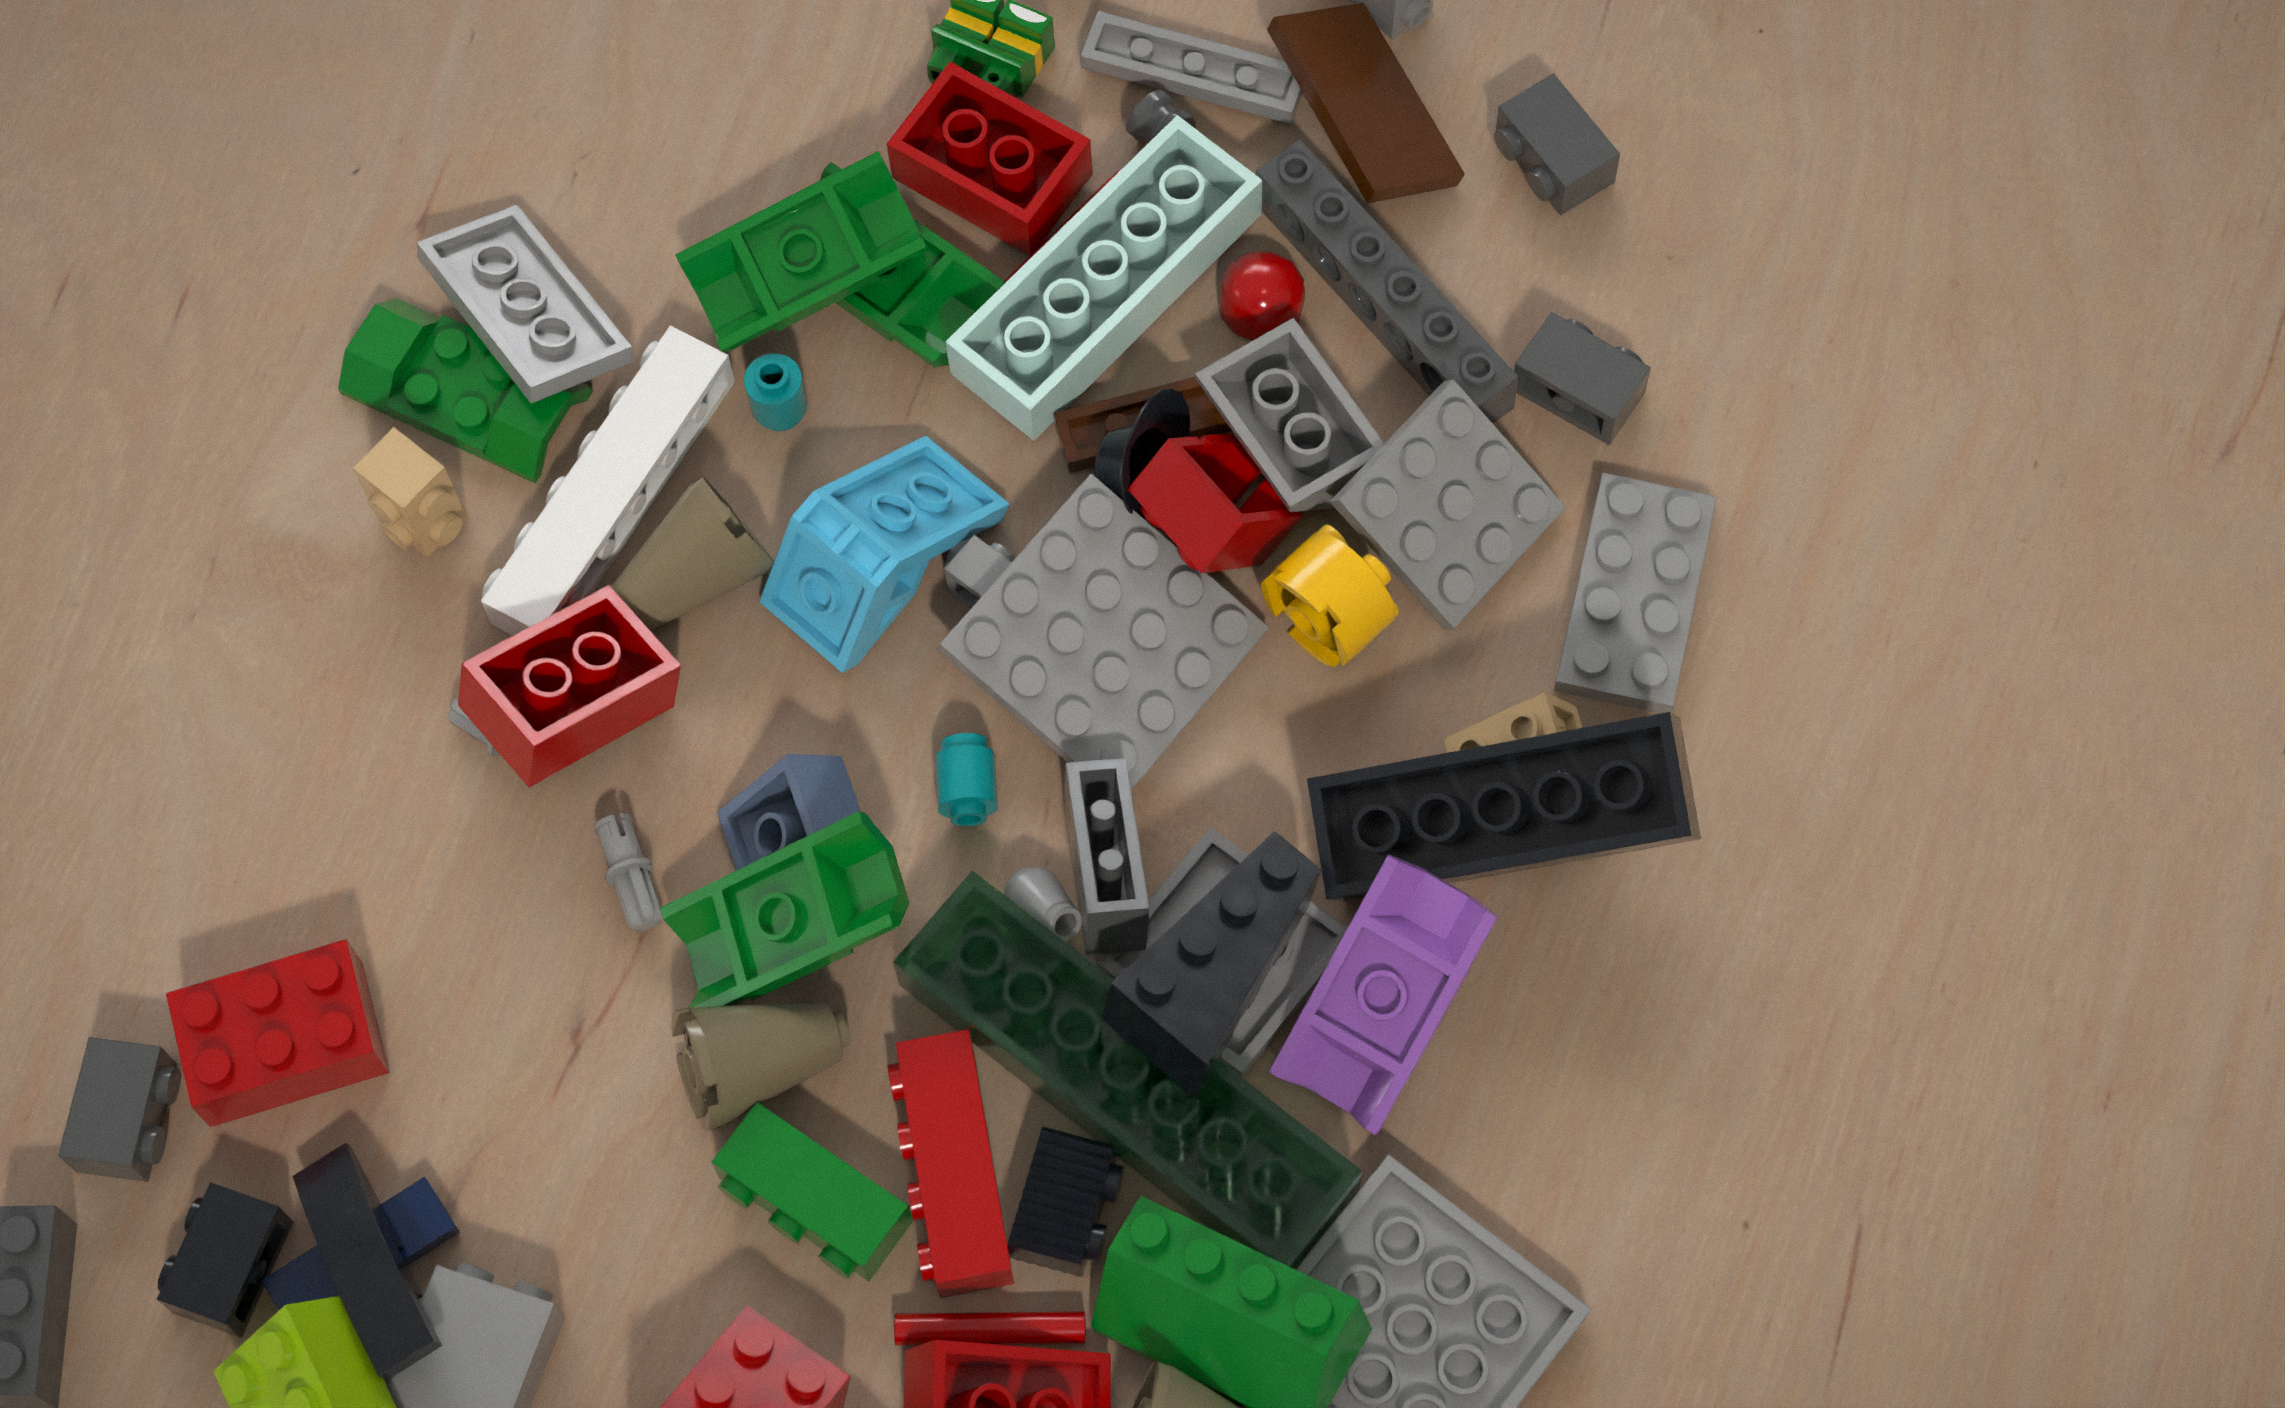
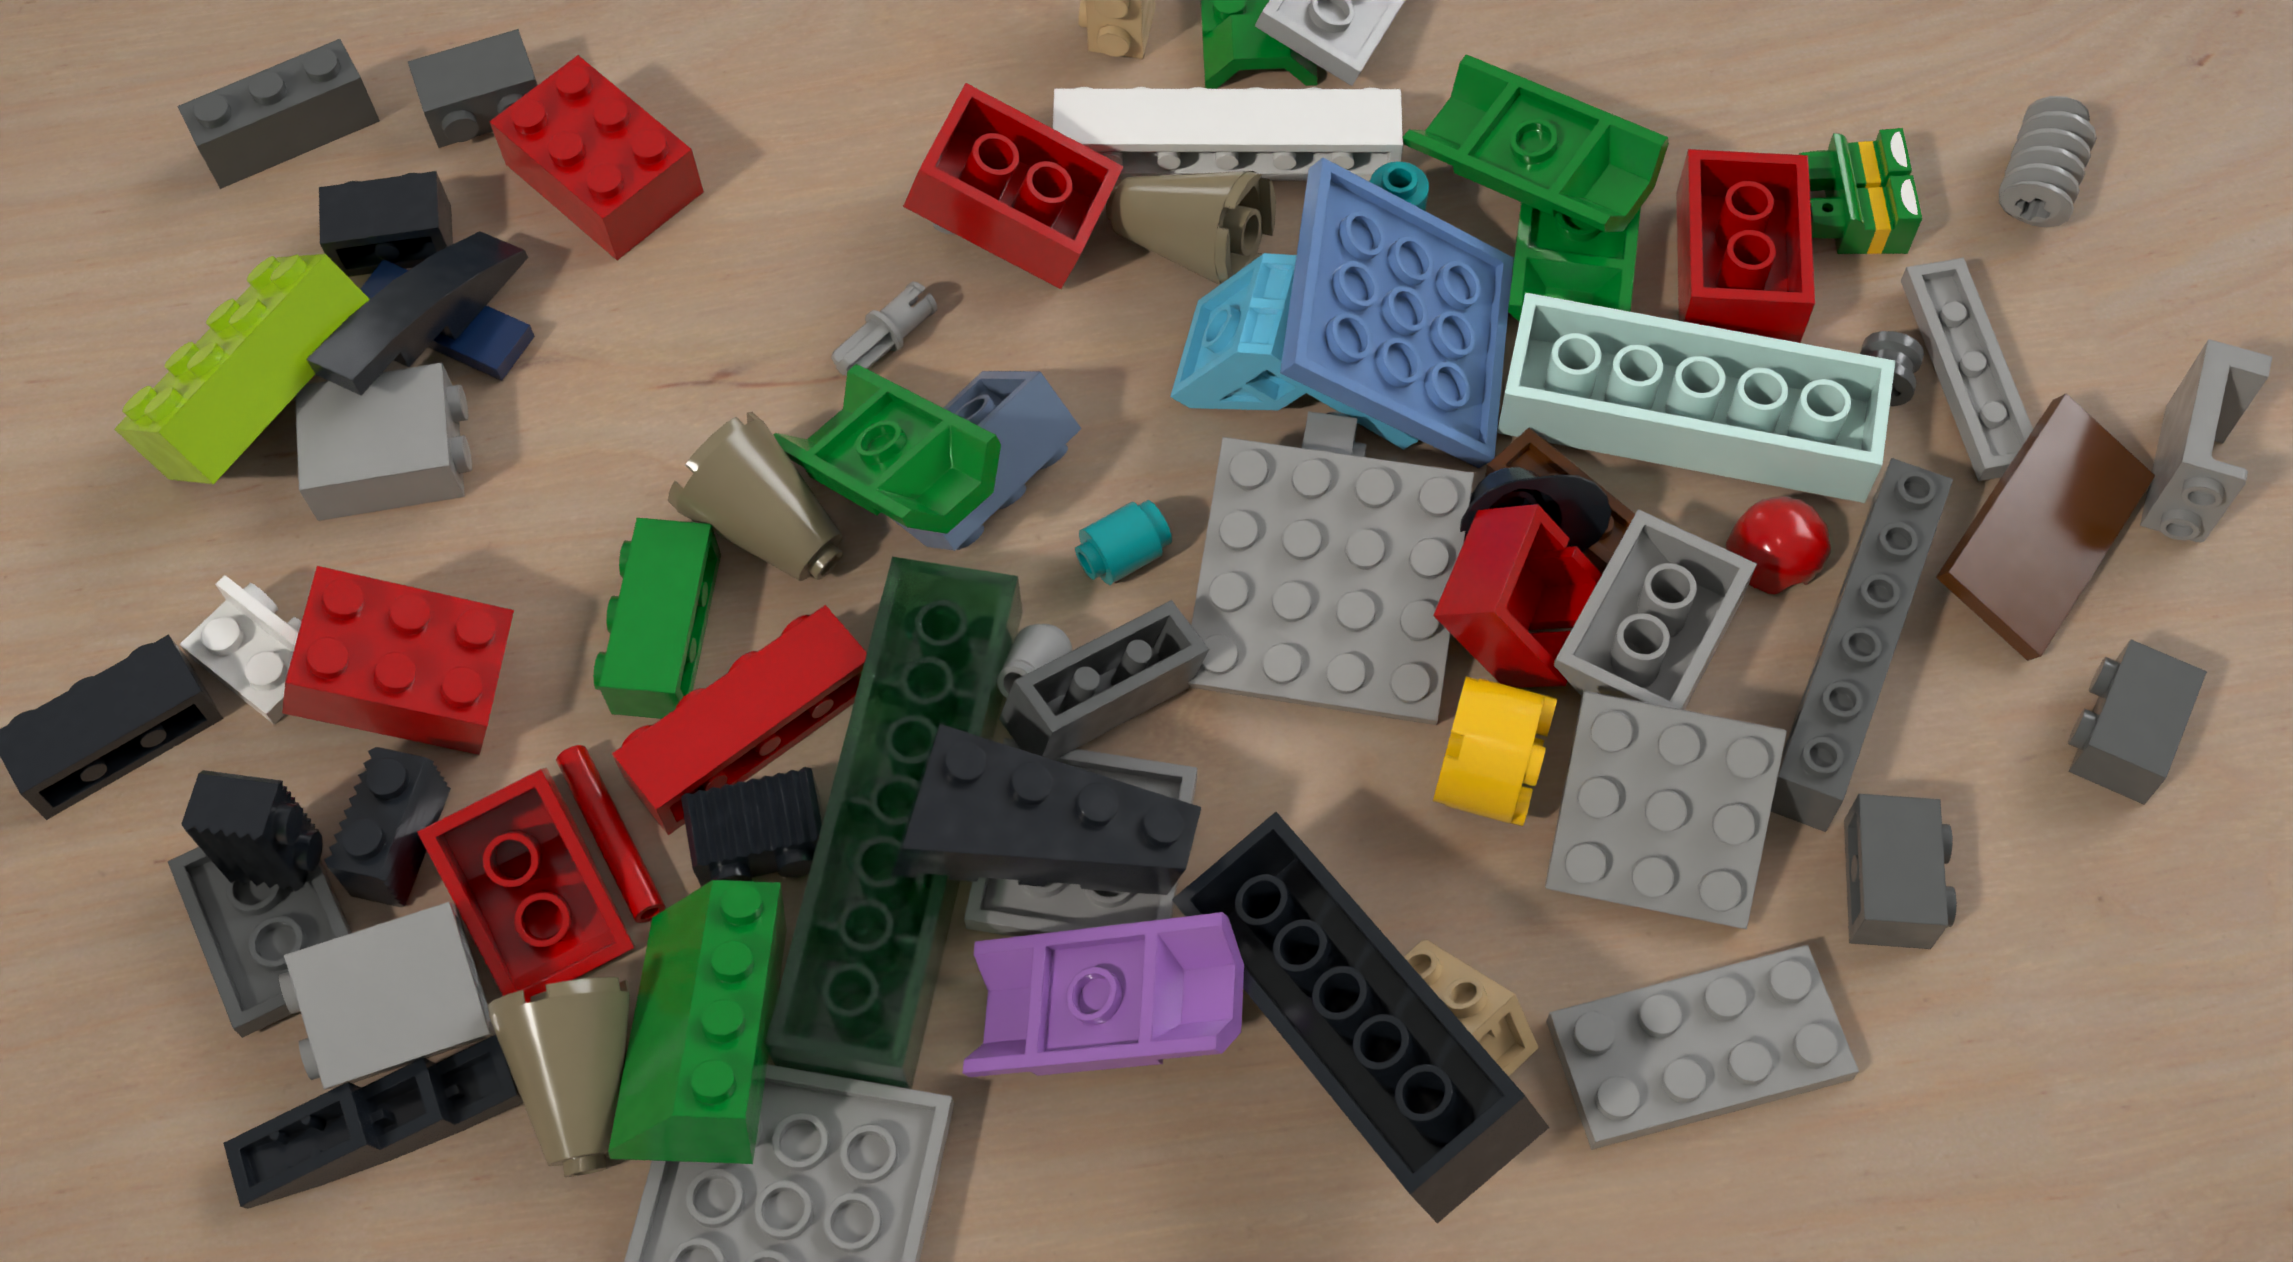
camera: 60 degrees right, 5 degrees down
(901, 447) = (1398, 314): none -> medium blue plate

